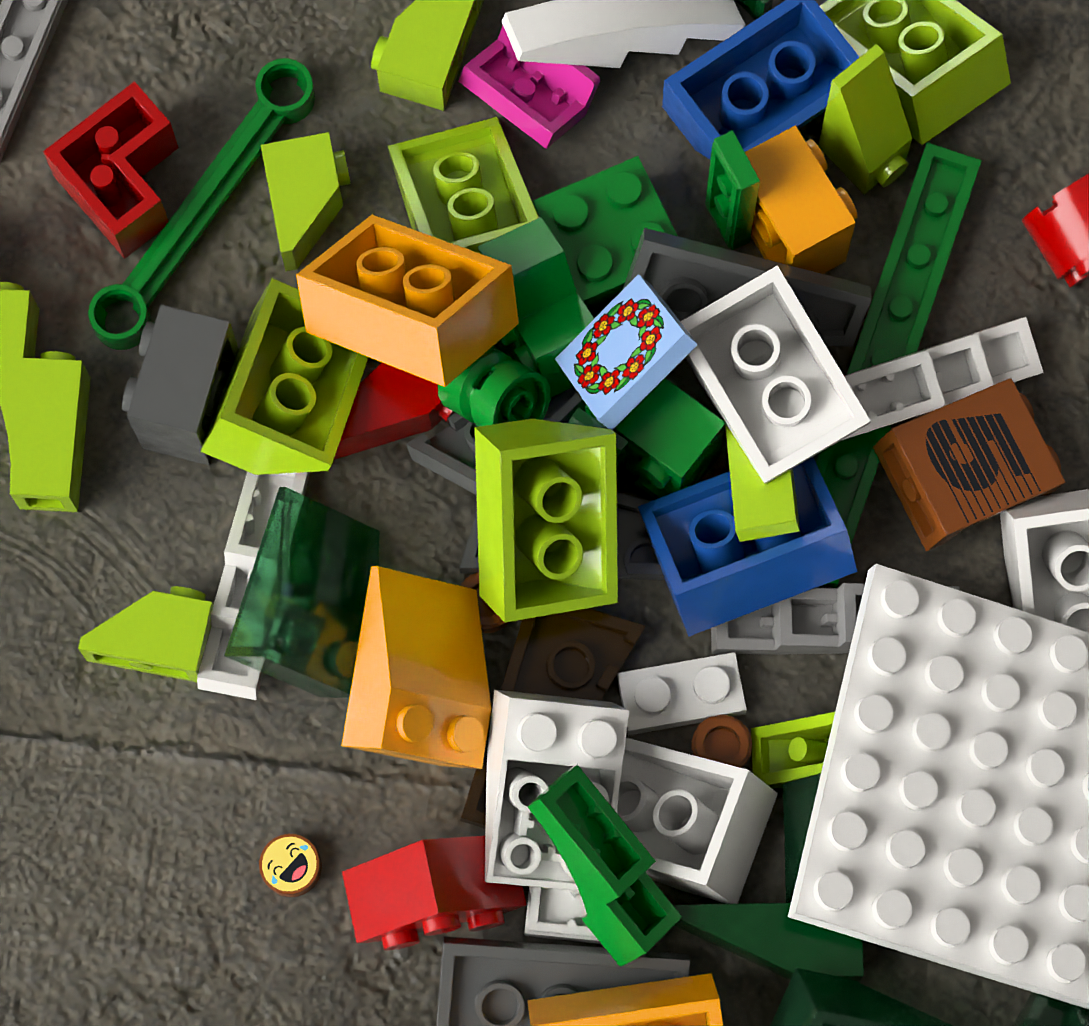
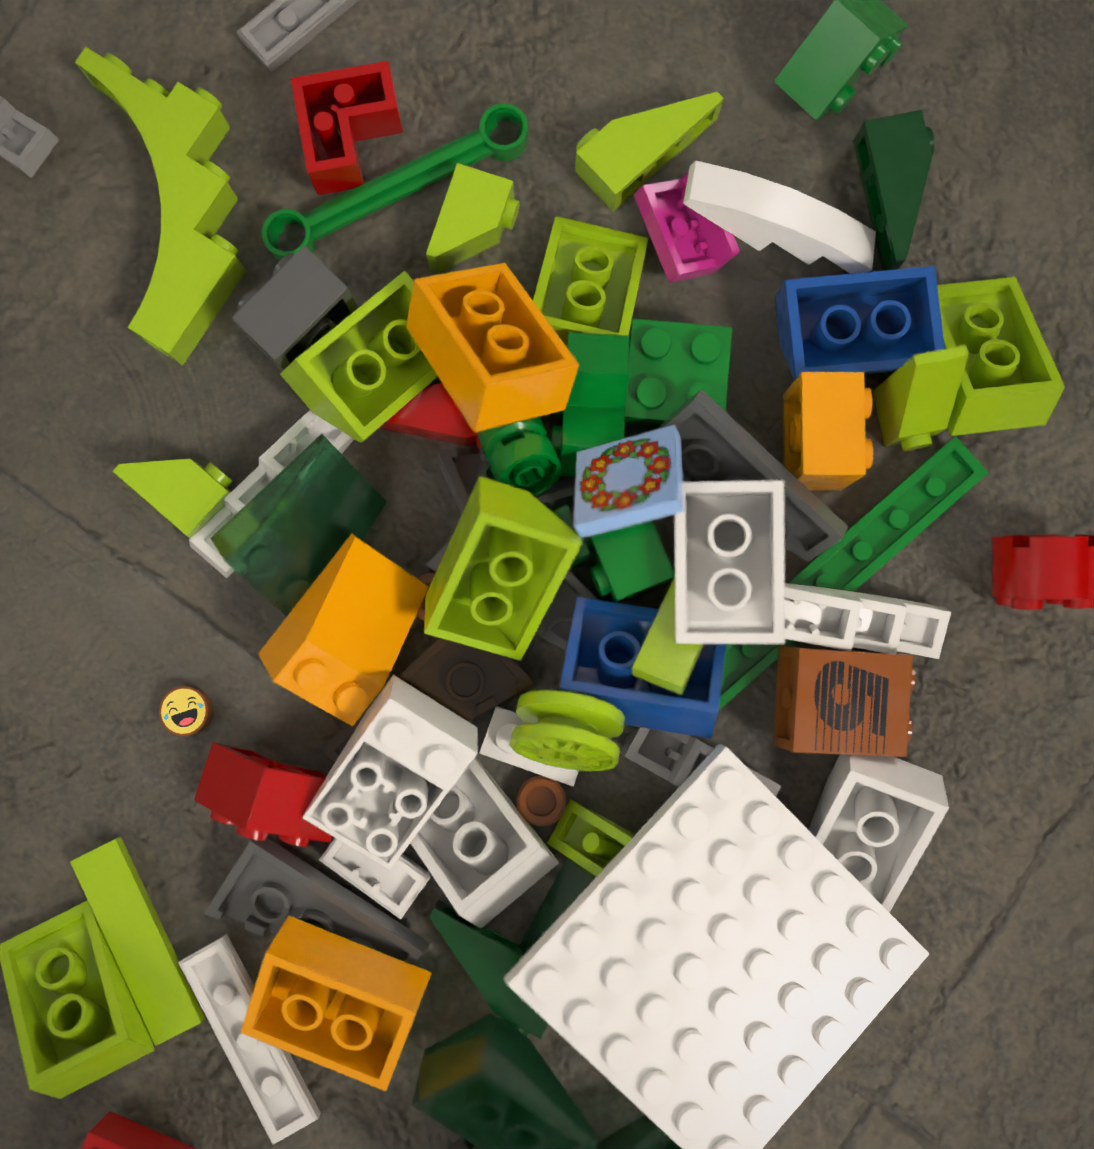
camera: 25 degrees right, 10 degrees up
(607, 865) = (392, 859): green slope -> none
(707, 639) = (567, 730): none -> lime wheel
(731, 190) = (787, 394): green tile -> none

